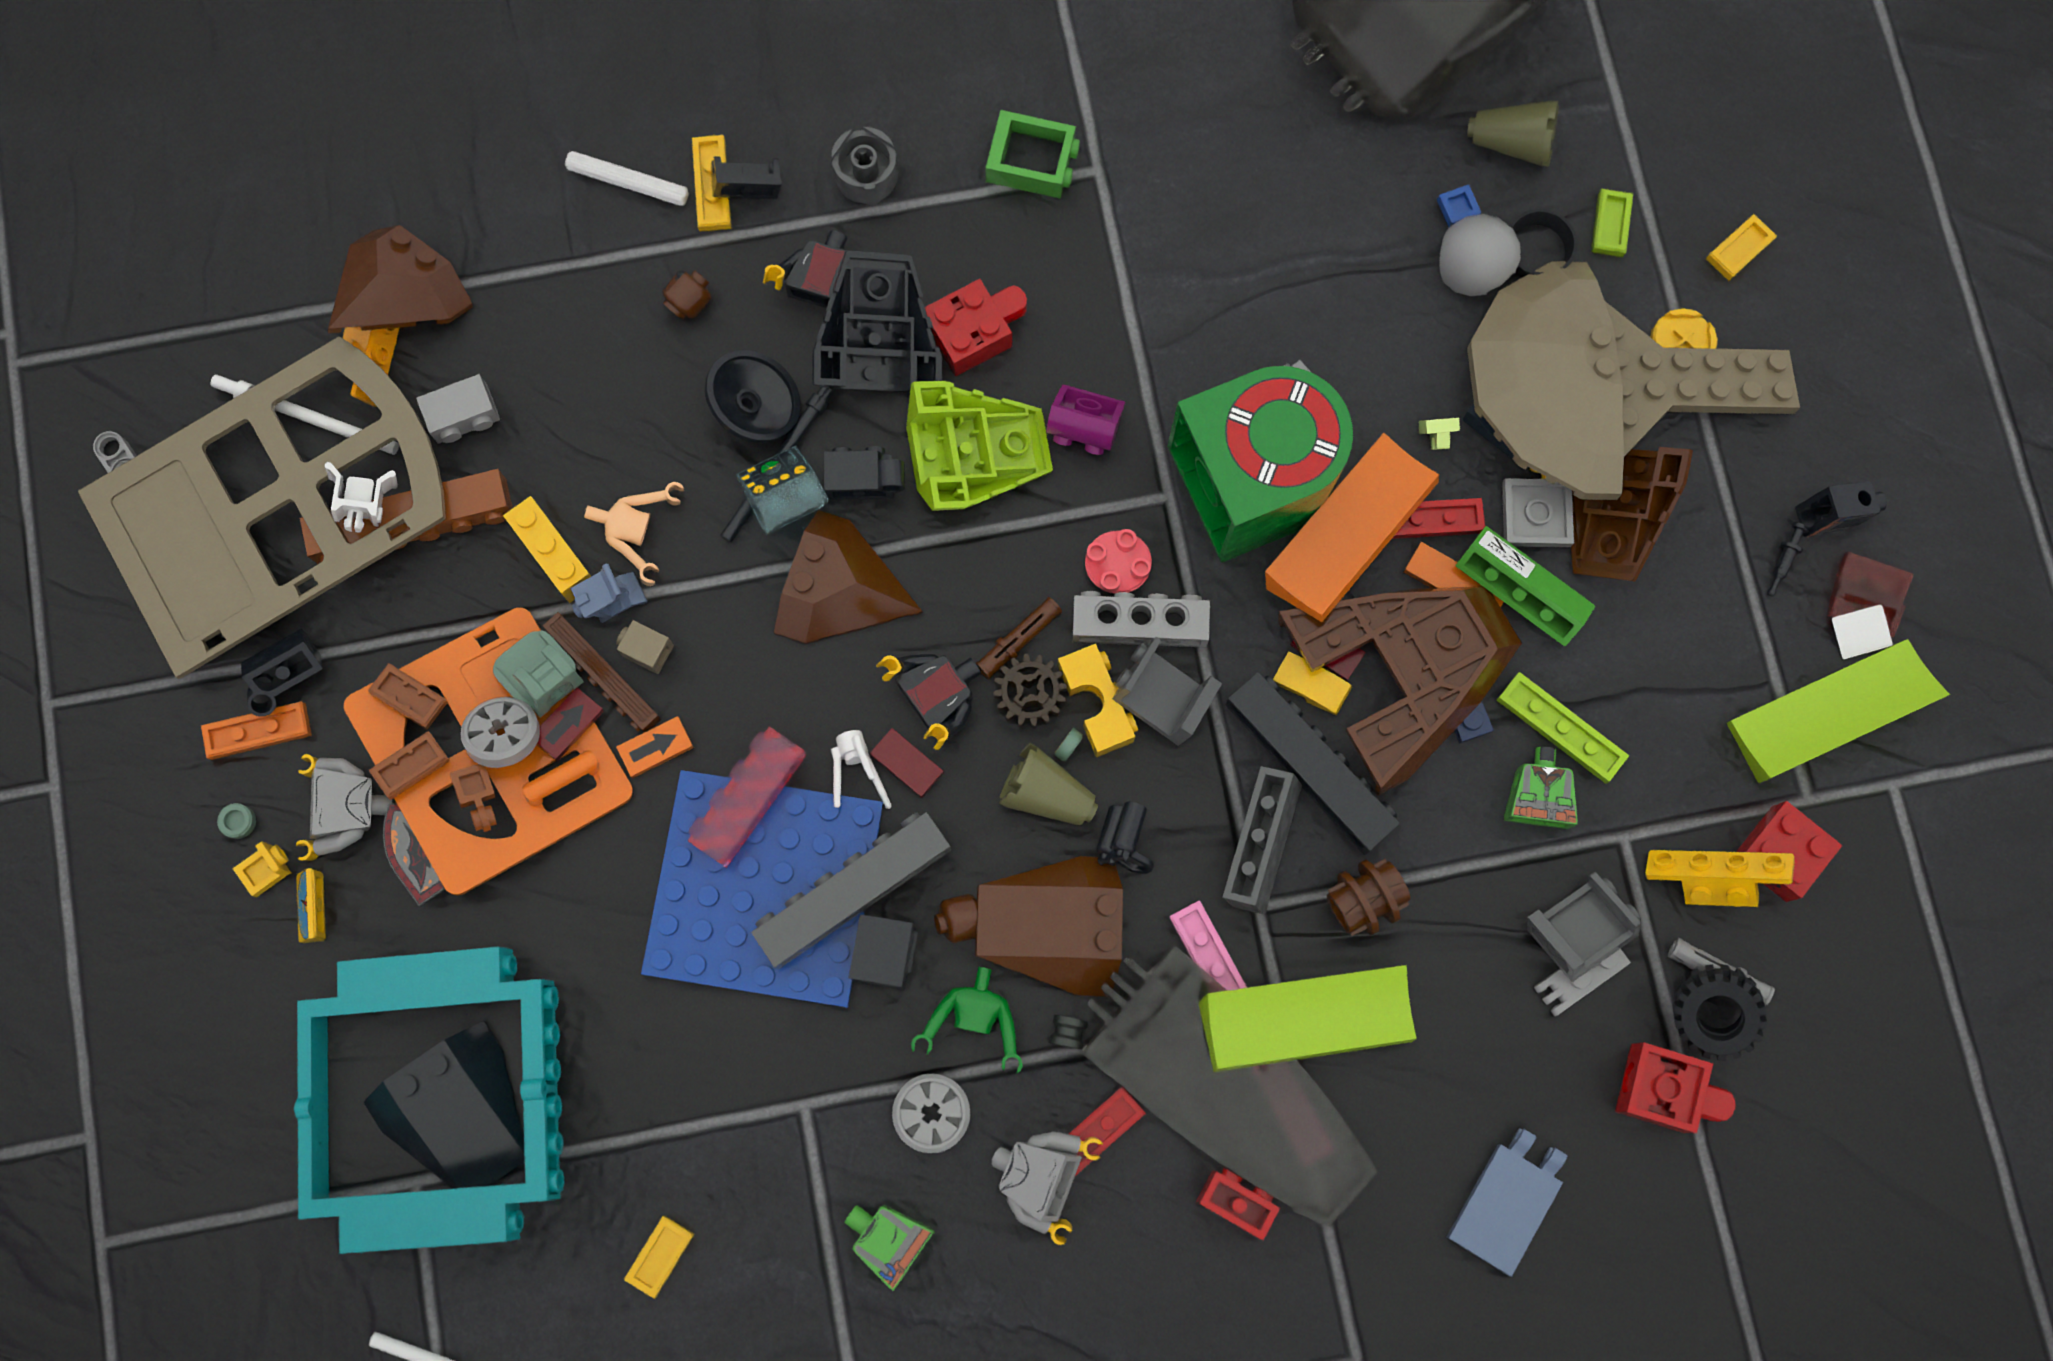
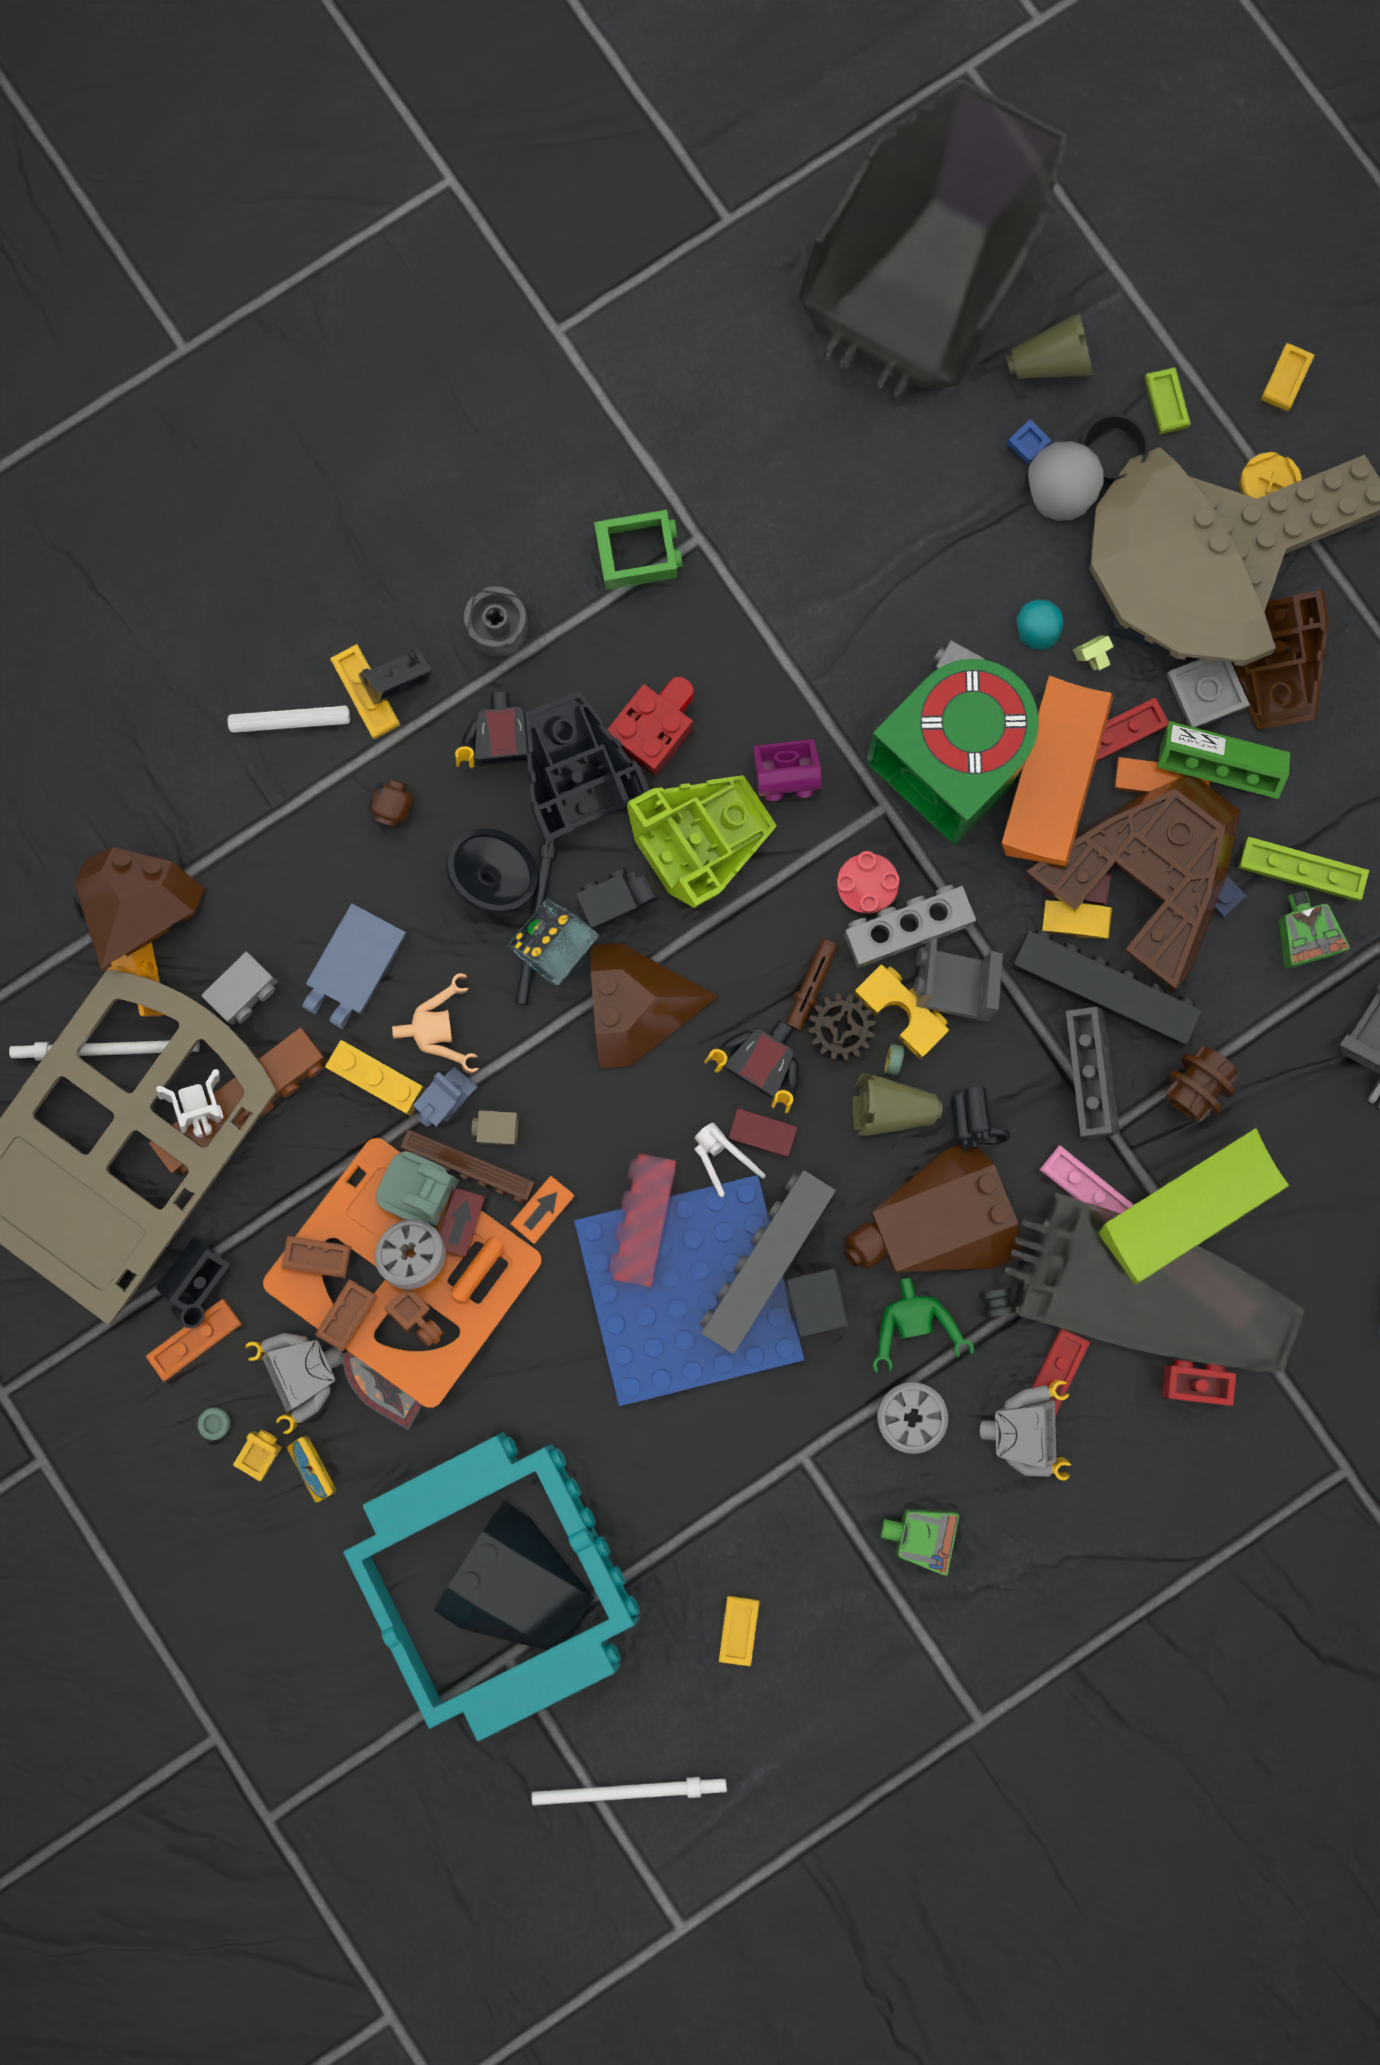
camera: 15 degrees left, 5 degrees up
(579, 433) = (353, 964): none -> sand blue tile
(1396, 383) = (1040, 624): none -> teal hair

